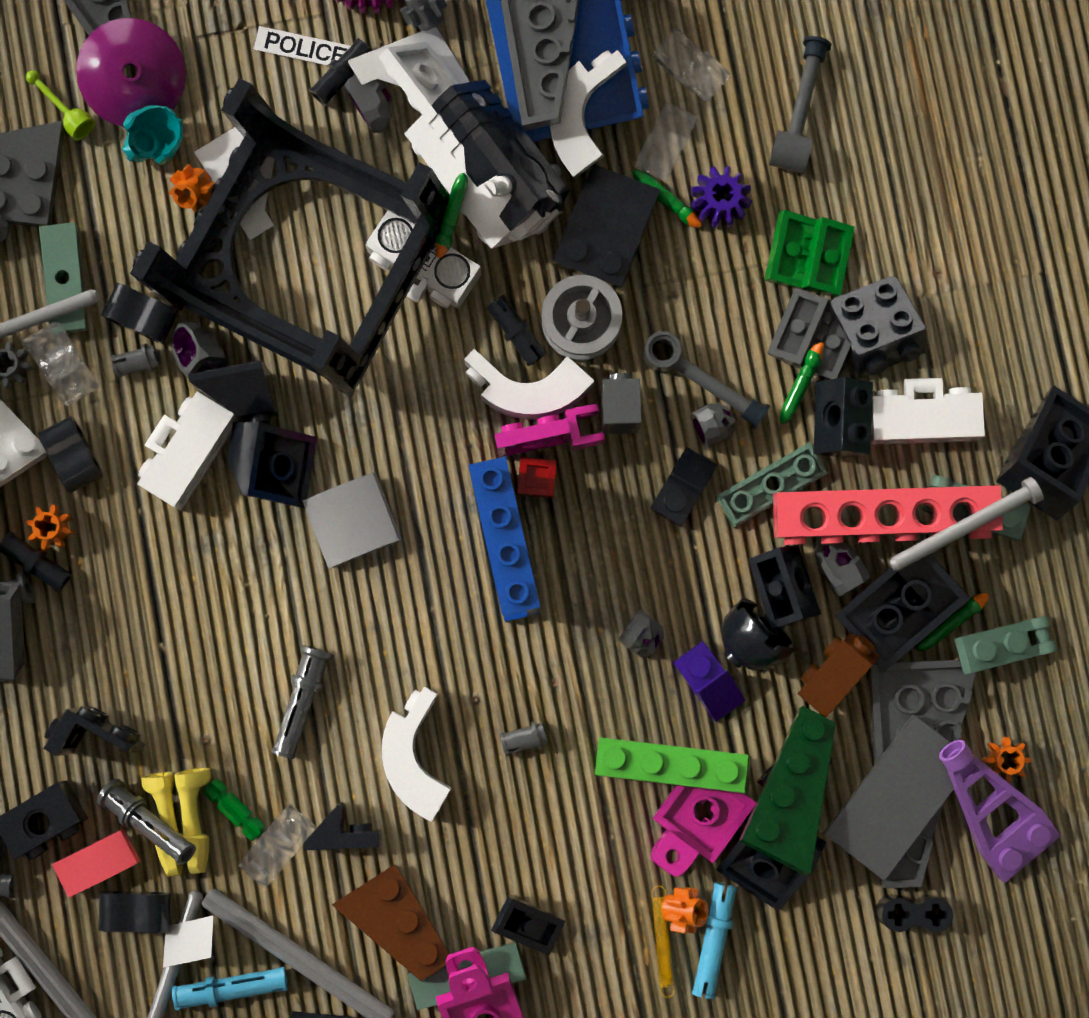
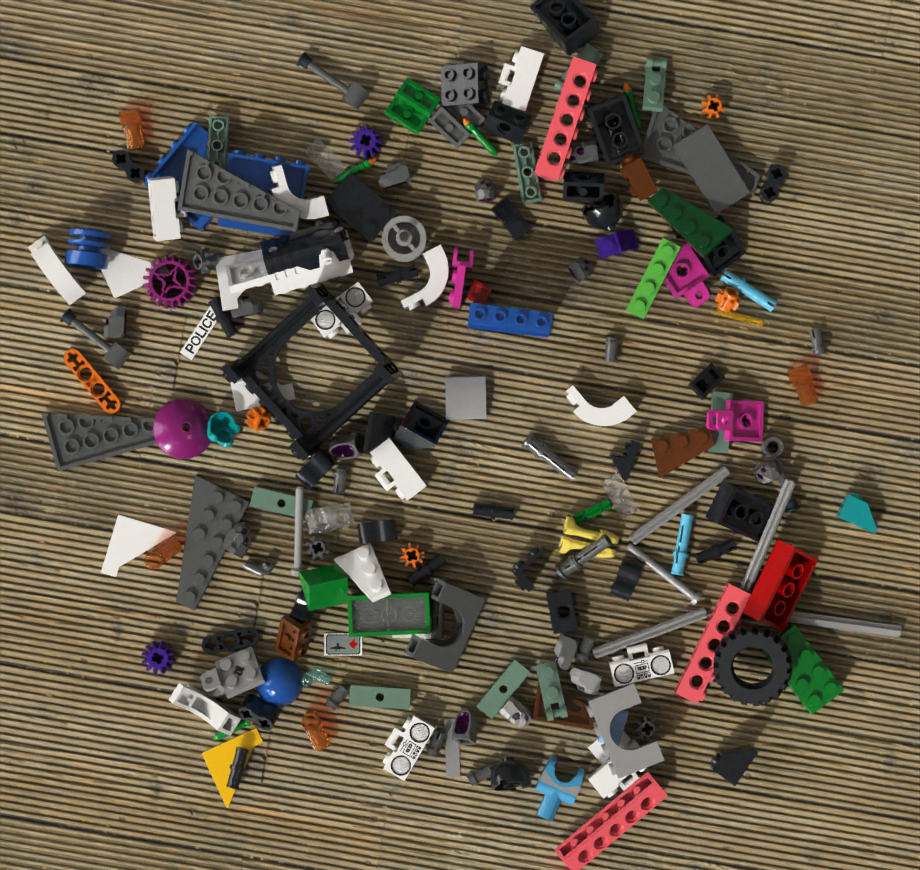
camera: 75 degrees left, 5 degrees up
(75, 121) = (198, 468): lime hinge -> none
(96, 862) = (594, 590): coral slope -> none
(174, 638) = (493, 511): none -> black pin
(188, 941) = (651, 556): white sticker -> none
(444, 239) = (338, 295): green piece -> none
(620, 404) = (458, 235): dark grey brick -> none
(682, 265) = (394, 176): none -> dark grey rock
(690, 65) = (287, 130): clear slope -> none
(751, 410) = (485, 168): dark grey piece -> none
(1020, 840) = (756, 116): medium lavender plate -> none
(1029, 492) = (582, 43): light grey bar -> none

